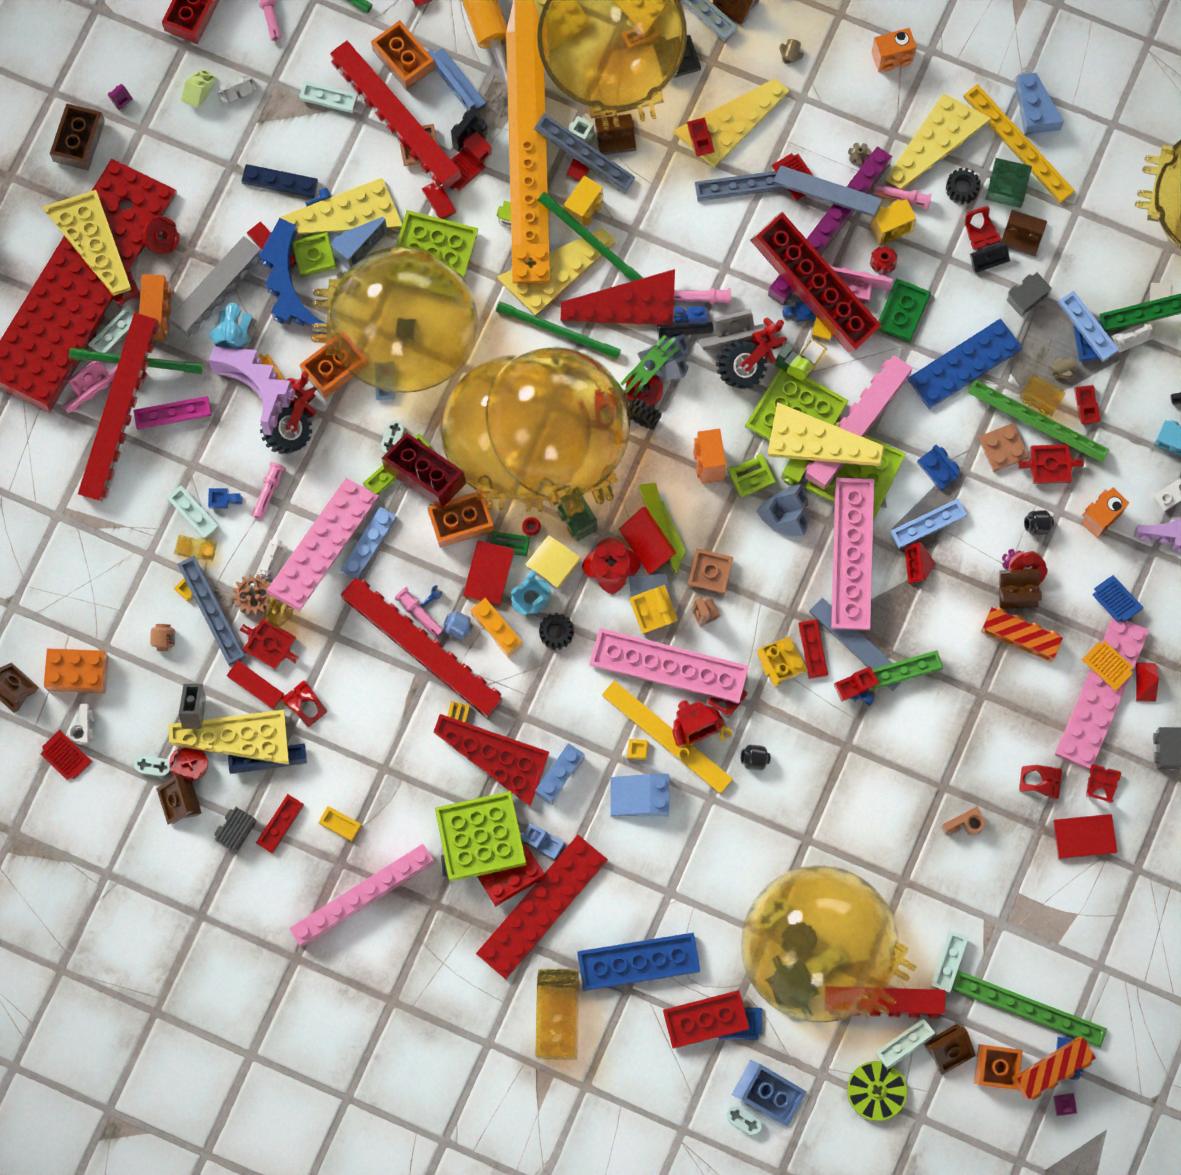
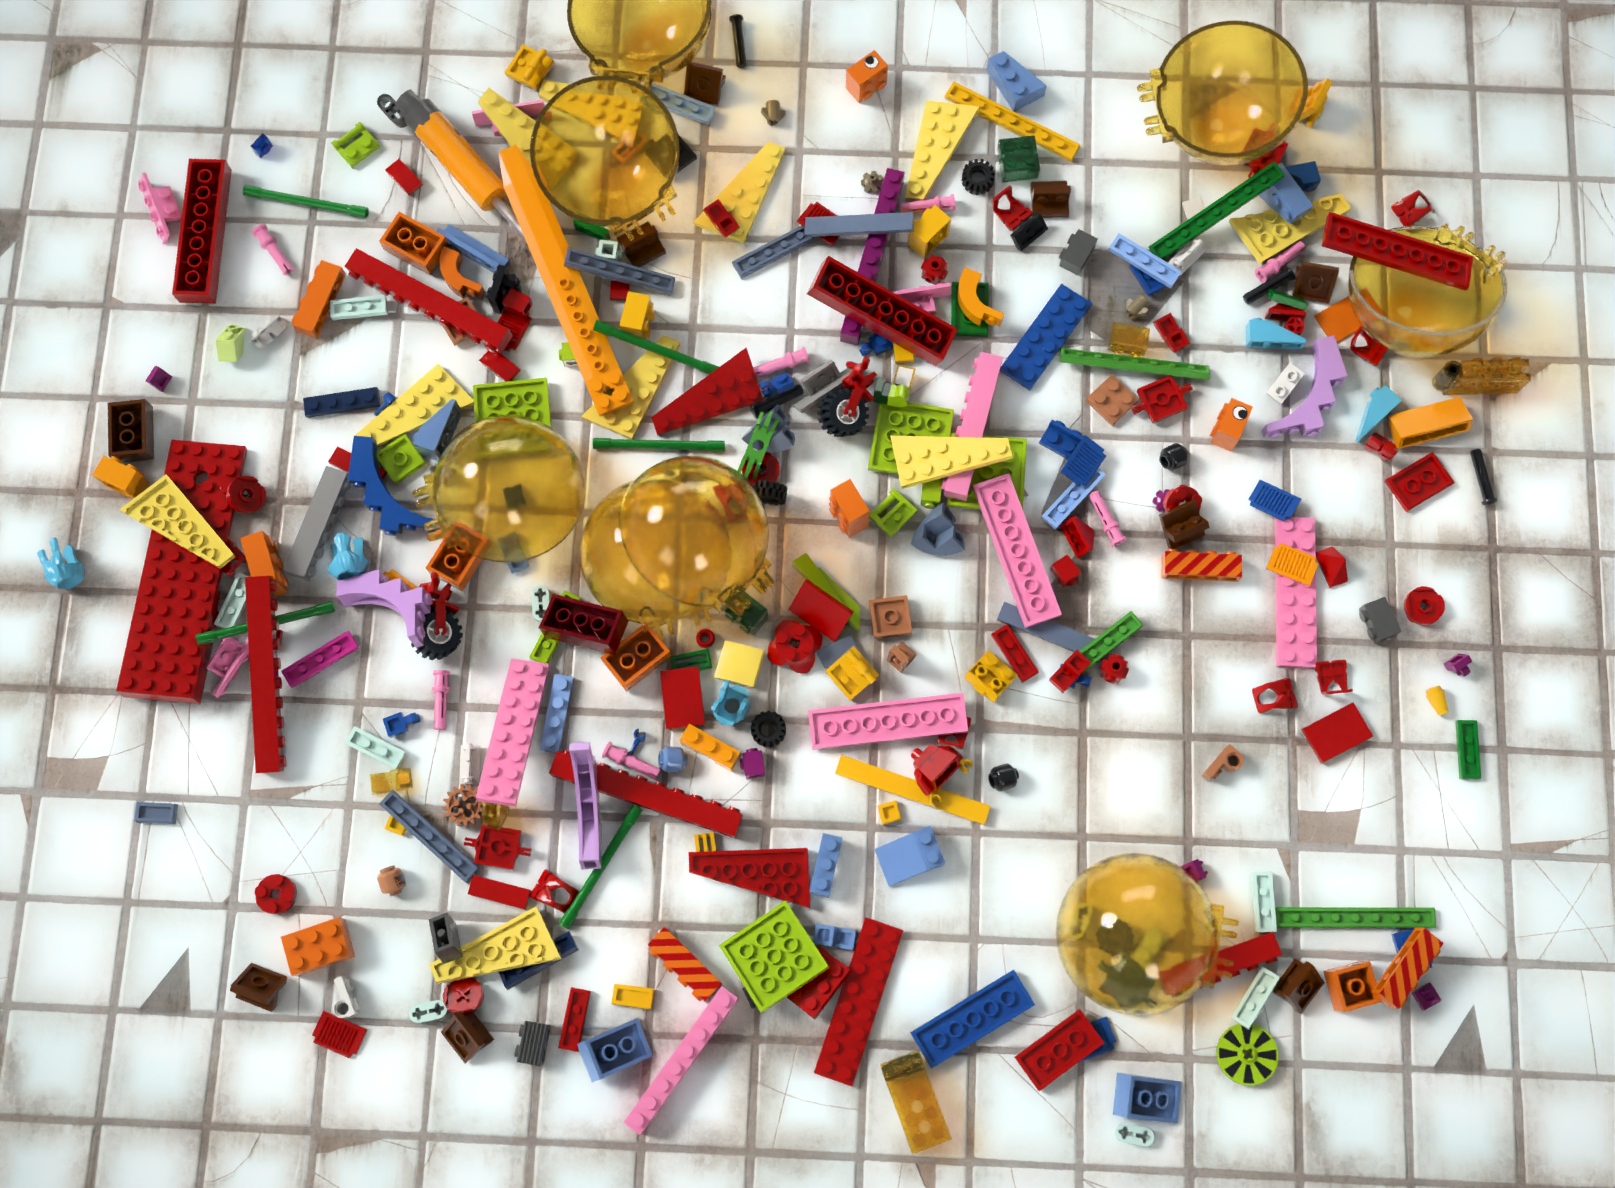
camera: 20 degrees left, 0 degrees up
(46, 603) = (272, 905): none -> red plate
(53, 177) = (120, 477): none -> light orange piece
(290, 79) = (316, 303): none -> orange brick
(305, 864) = (614, 1050): none -> medium blue slope
(365, 635) = (587, 797): none -> lavender arch
(395, 667) = (572, 912): none -> green piece
(397, 813) = (685, 964): none -> brick
(427, 90) = (450, 268): none -> orange arch
(529, 657) = (752, 763): none -> magenta brick
(580, 109) = (592, 230): none -> green tile
(891, 591) = (1065, 571): none -> red brick
(894, 702) = (1110, 674): none -> red brick
(898, 908) = (1195, 869): none -> magenta tile
(905, 312) = (971, 304): none -> light orange arch
(950, 495) = (1083, 461): none -> blue window
(951, 566) = (1110, 526): none -> bright pink pin

